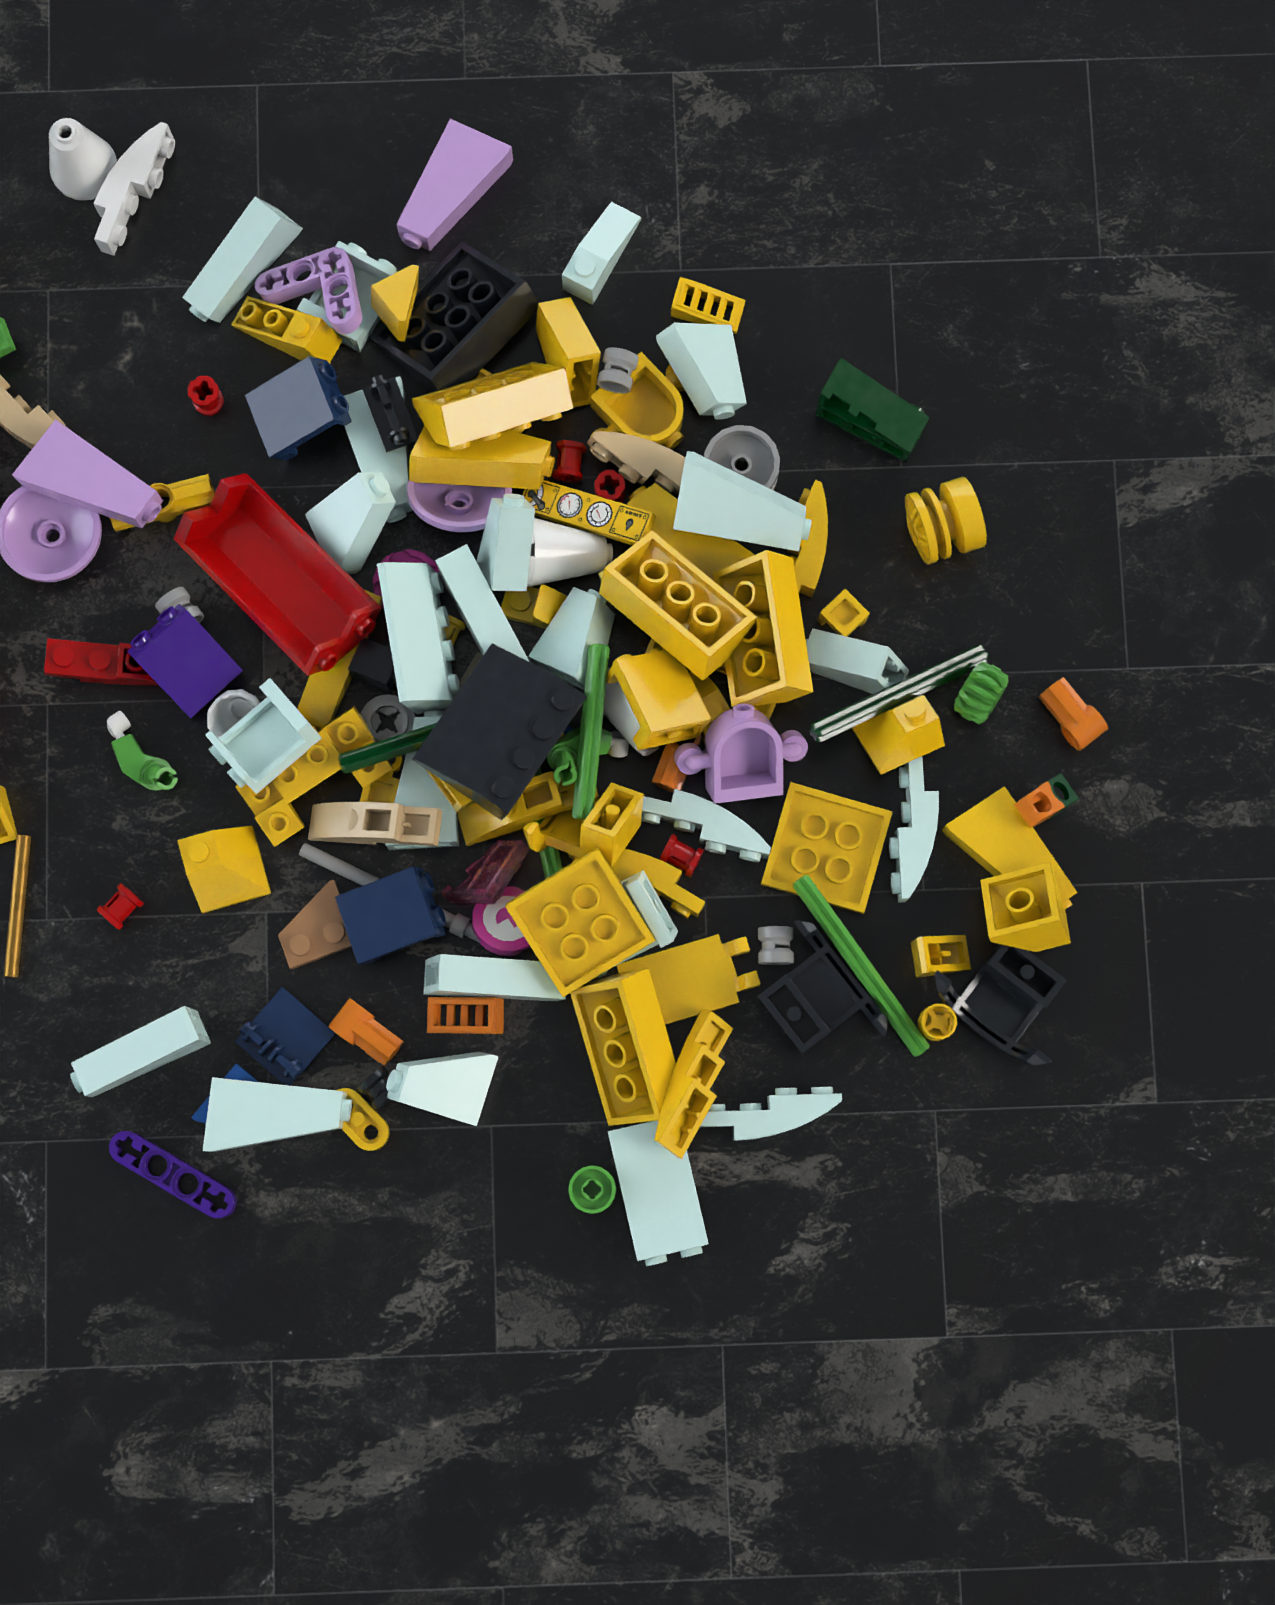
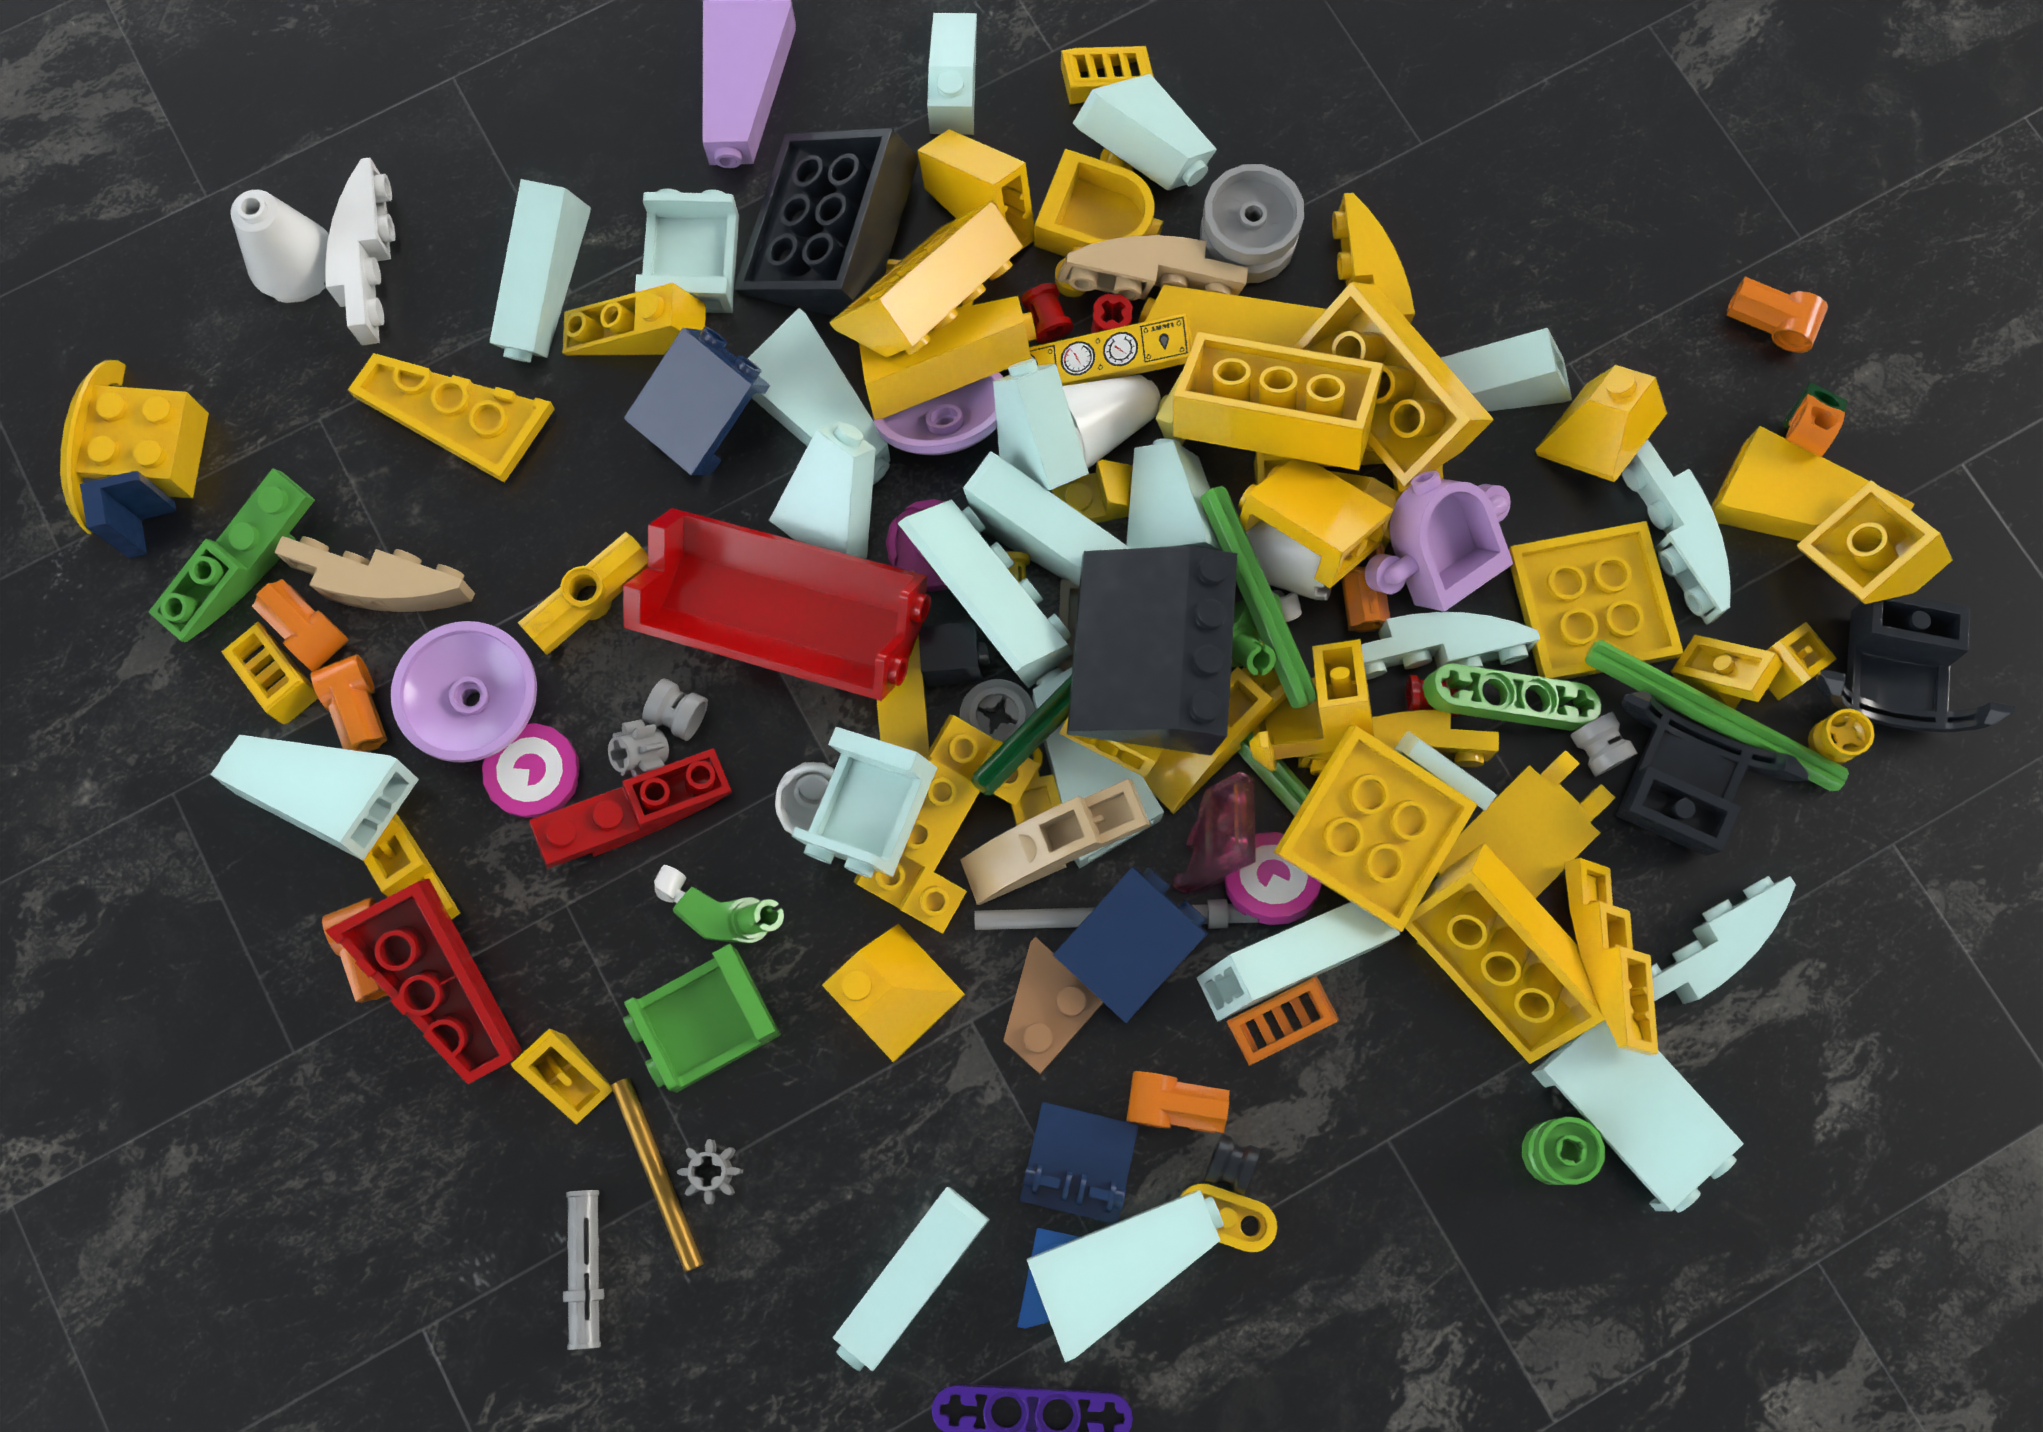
camera: 25 degrees left, 5 degrees down
(45, 930) = (702, 1160): none -> light grey gear
(68, 606) = (533, 773): none -> tile
(83, 476) = (480, 601): lavender slope -> none
(93, 823) = (700, 1021): none -> bright green panel
(120, 906) = (788, 1106): red bush -> none
(137, 620) = (637, 748): none -> light grey gear
(142, 338) = (467, 419): none -> yellow wing
(184, 659) = (714, 760): dark purple panel -> none
(213, 403) = (565, 434): red bush -> none
(321, 277) = (643, 243): lavender beam -> none
(390, 413) = (811, 352): black hinge -> none
(395, 298) = (746, 228): yellow slope -> none
(445, 1085) = (1314, 1115): light aqua slope -> none
(617, 370) = (1053, 174): light grey wheel -> none
(727, 887) = (1512, 697): none -> bright green beam
(736, 508) = (1275, 259): light aqua slope -> none
(843, 614) = (1462, 324): yellow panel -> none
(871, 411) = (1359, 93): dark green wedge -> none
(885, 938) = (1726, 670): none -> yellow slope
(897, 693) = (1578, 383): axle -> none
(952, 518) = (1517, 166): yellow wheel -> none
(981, 692) = (1668, 337): bright green gear -> none

